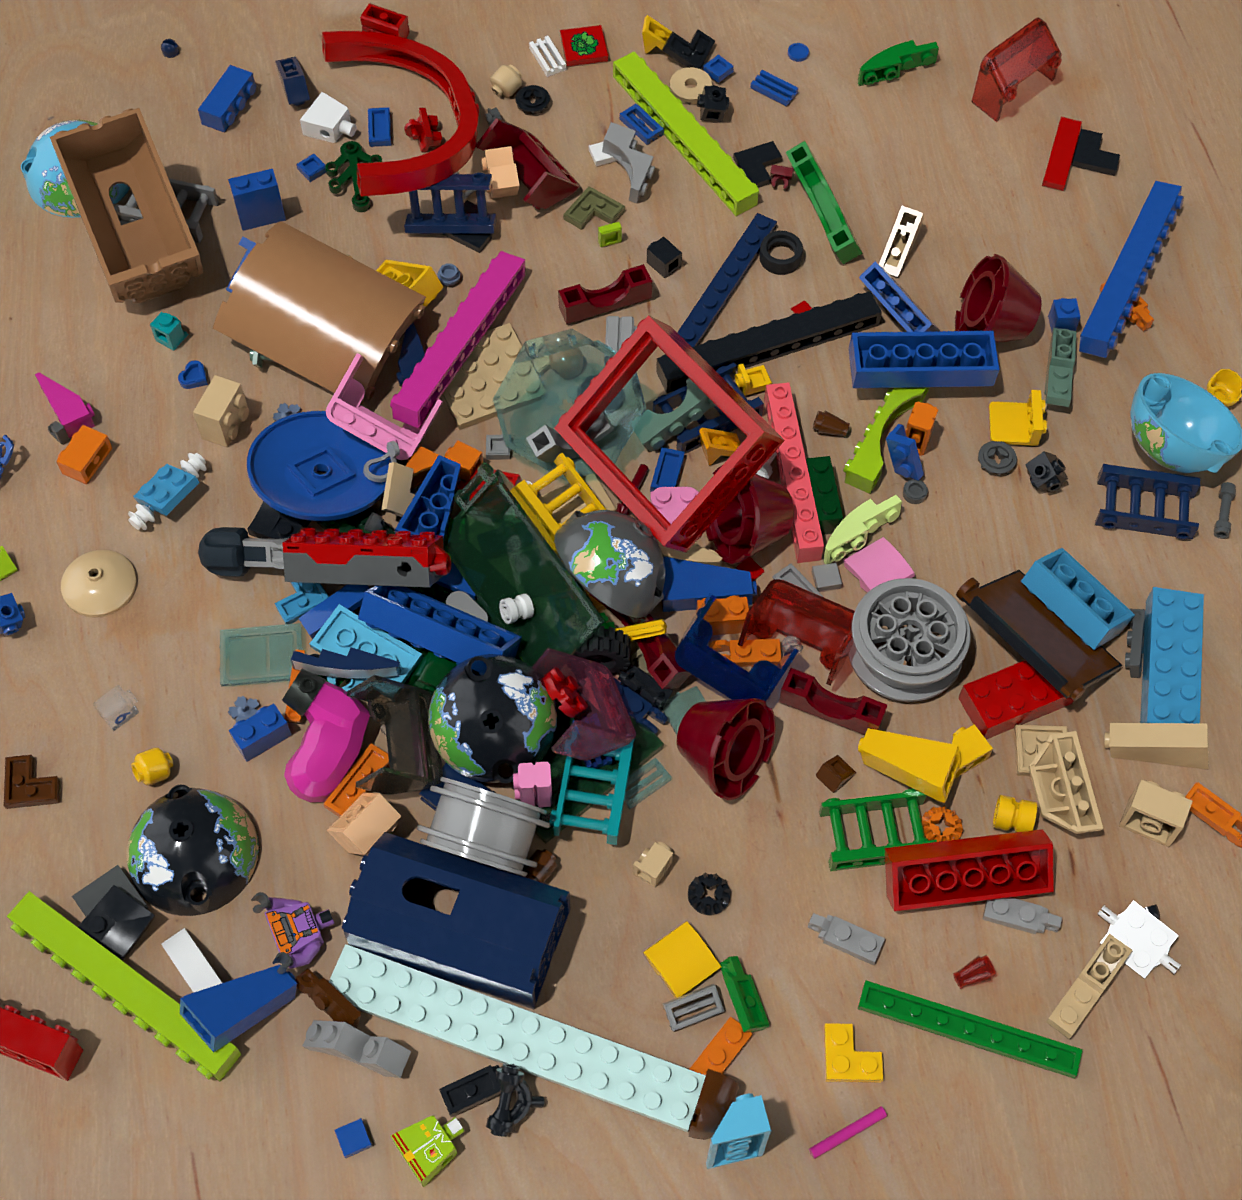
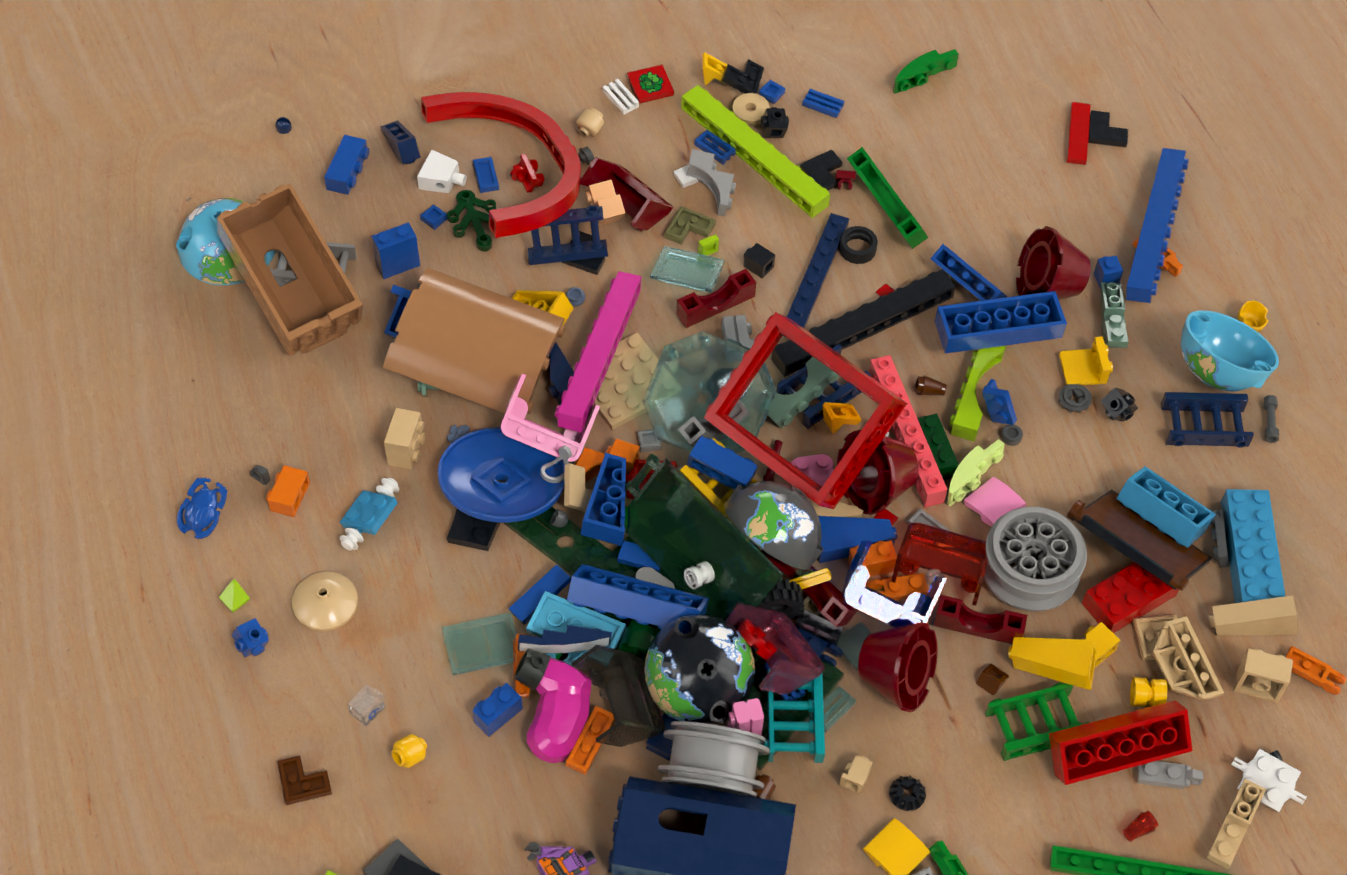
camera: 10 degrees left, 5 degrees down
(67, 405) = (262, 449): dark pink slope -> none
(168, 326) = (339, 369): teal brick -> none
(193, 375) = (368, 411): blue tile -> none
(216, 850) = (442, 830): black piece -> none
(243, 709) = (477, 692): sand blue plant -> none
(306, 597) = (511, 588): dark azure tile -> none
(331, 556) = (529, 551): piece -> none
(364, 823) = (606, 773): light nougat brick -> none
(384, 21) = (473, 81): red brick -> none
(524, 97) = (621, 131): black gear -> none
(565, 483) = (721, 463): none -> blue brick
(580, 257) = (687, 269): none -> clear light blue piece
(667, 468) = (799, 441): blue tile -> none
(752, 379) = (857, 355): yellow bracket -> none
(798, 52) = (837, 69): blue piece -> none
(826, 577) = (952, 516): light grey tile -> none
(847, 937) = (1029, 813): light grey hinge -> none
(901, 240) = (959, 223): slope -> none
(921, 425) = (1009, 376): orange brick -> none
(933, 817) = (1081, 704): orange gear -> none
(1011, 63) = (1025, 62): clear red windscreen -> none

